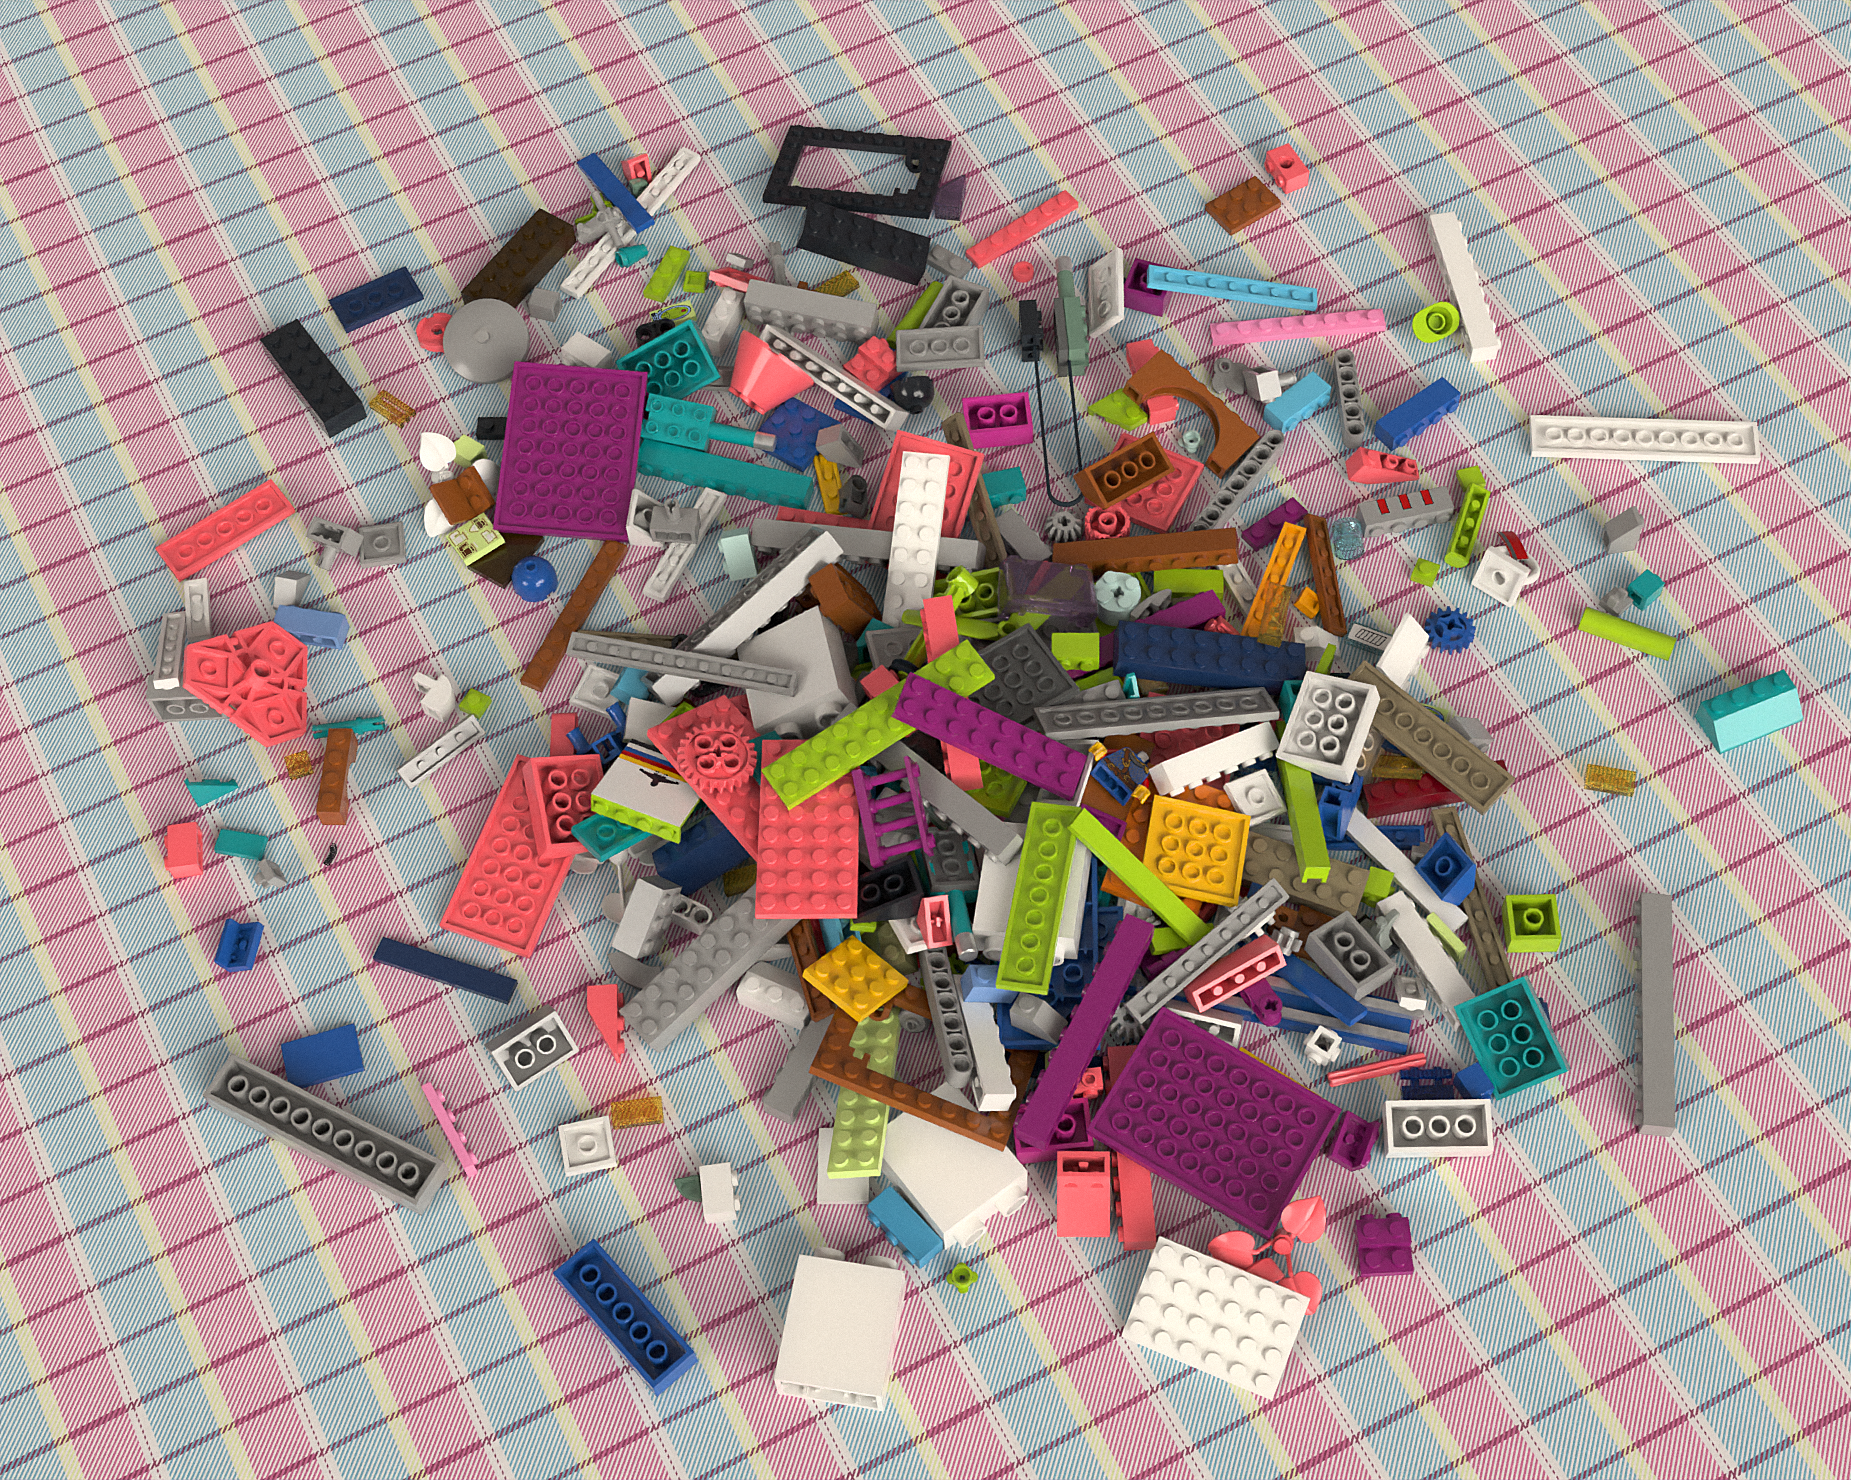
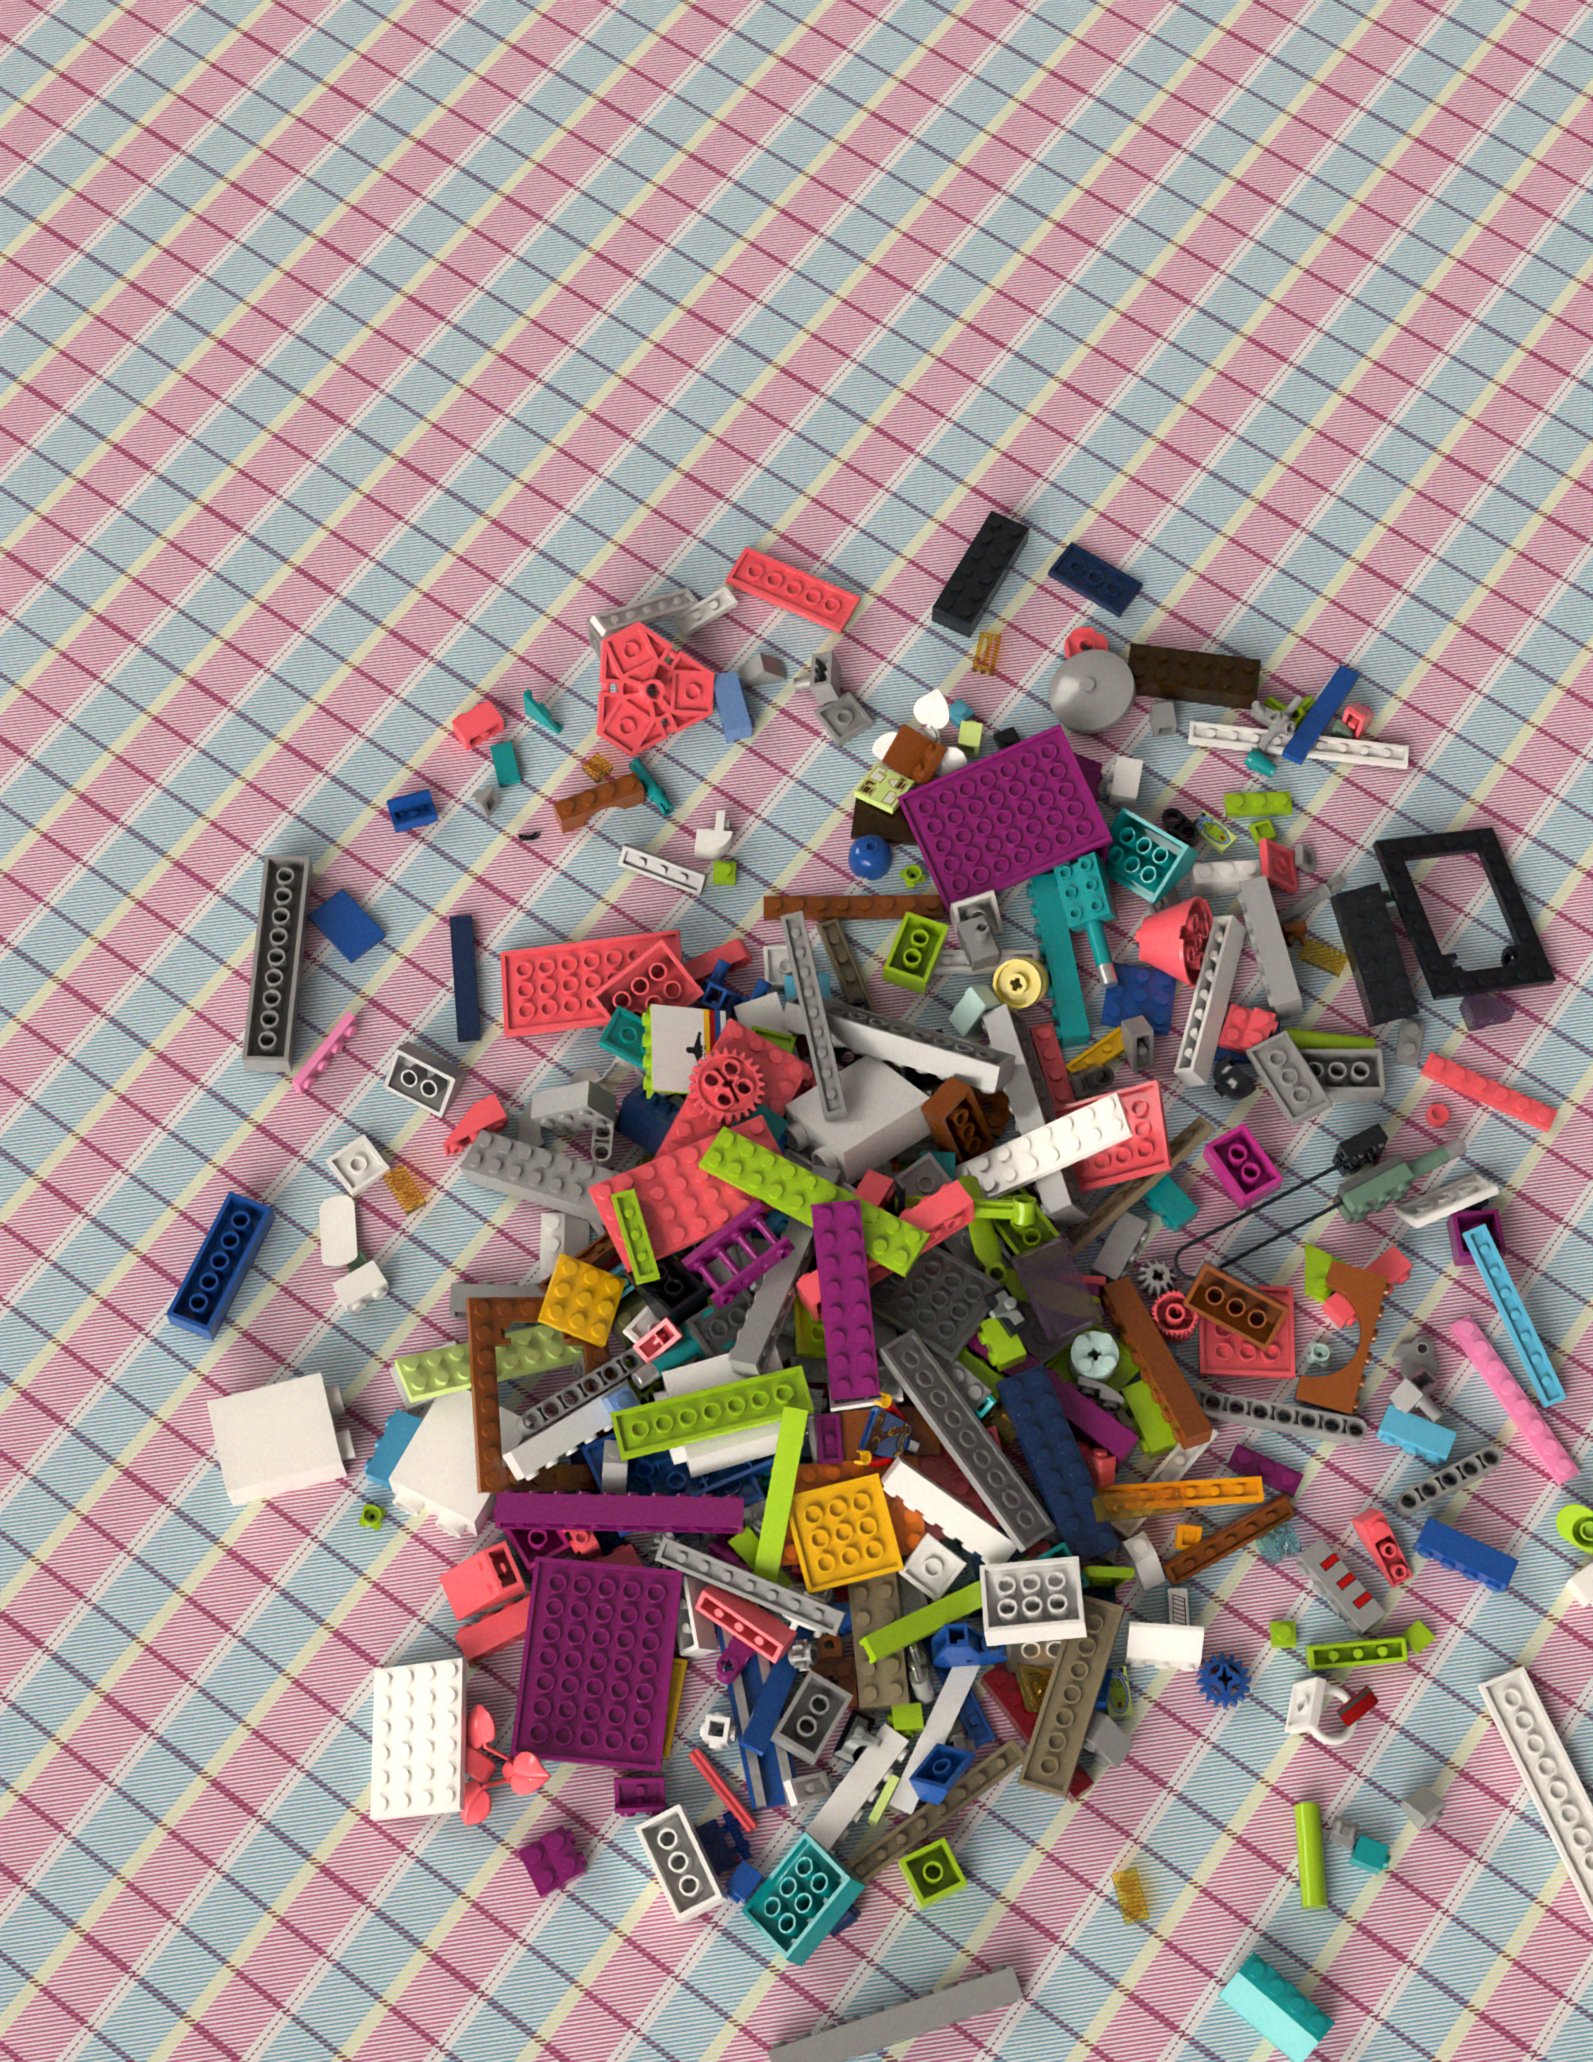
camera: 60 degrees right, 5 degrees up
(569, 550) = (914, 870): none -> lime plate
(645, 1193) = (338, 1231): none -> white sticker
(657, 574) = (915, 952): none -> lime brick
(722, 499) = (1031, 975): none -> light yellow wheel
(831, 888) = (635, 1236): none -> lime plate
(1054, 627) = (1007, 1311): none -> piece
(1349, 854) = (920, 1675): none -> light grey piece

